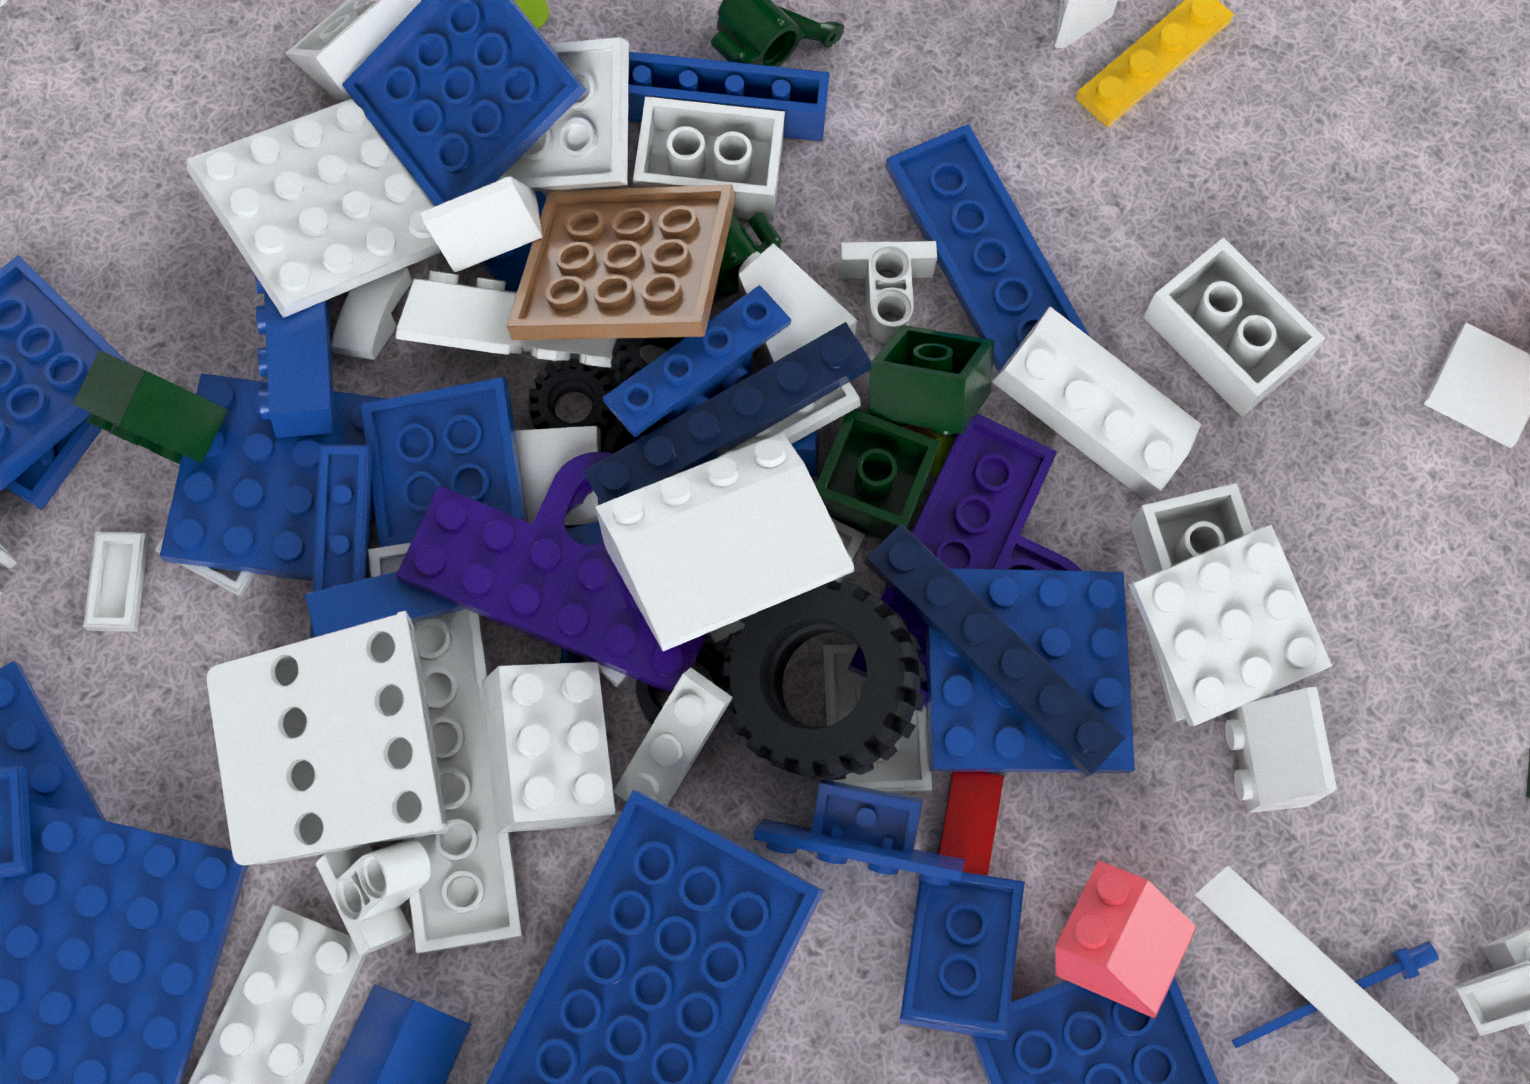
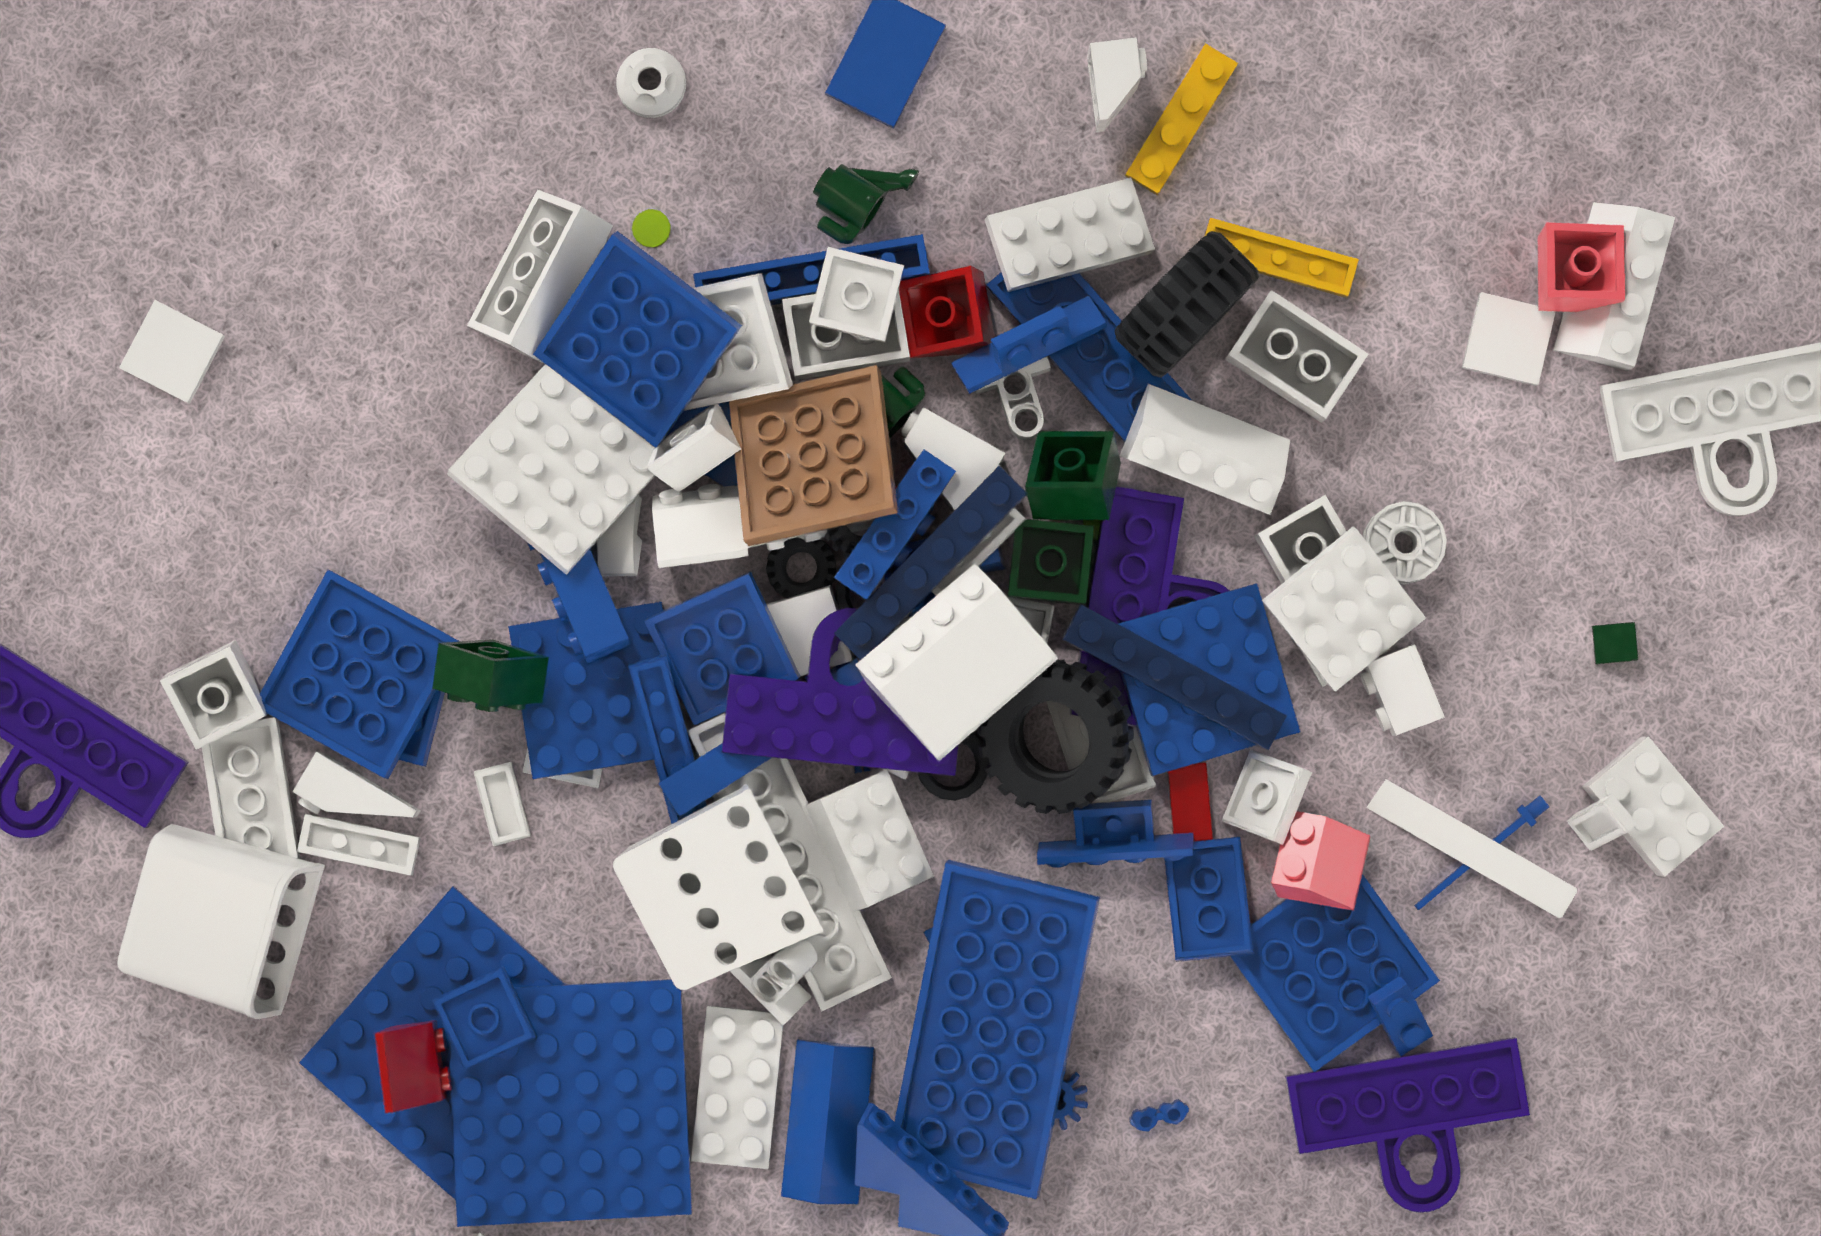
camera: 10 degrees left, 15 degrees up
(674, 738) = (959, 812): white plate -> none
(732, 106) = (856, 294): none -> white plate
(832, 172) = (946, 313): none -> red slope
(918, 214) = (1029, 343): none -> blue bracket
(997, 130) = (1069, 234): none -> white plate
(1073, 838) = (1266, 796): none -> white tile
(1120, 214) = (1186, 303): none -> black tyre
(1246, 227) = (1290, 259): none -> yellow plate
(1340, 565) = (1423, 529): none -> white wheel

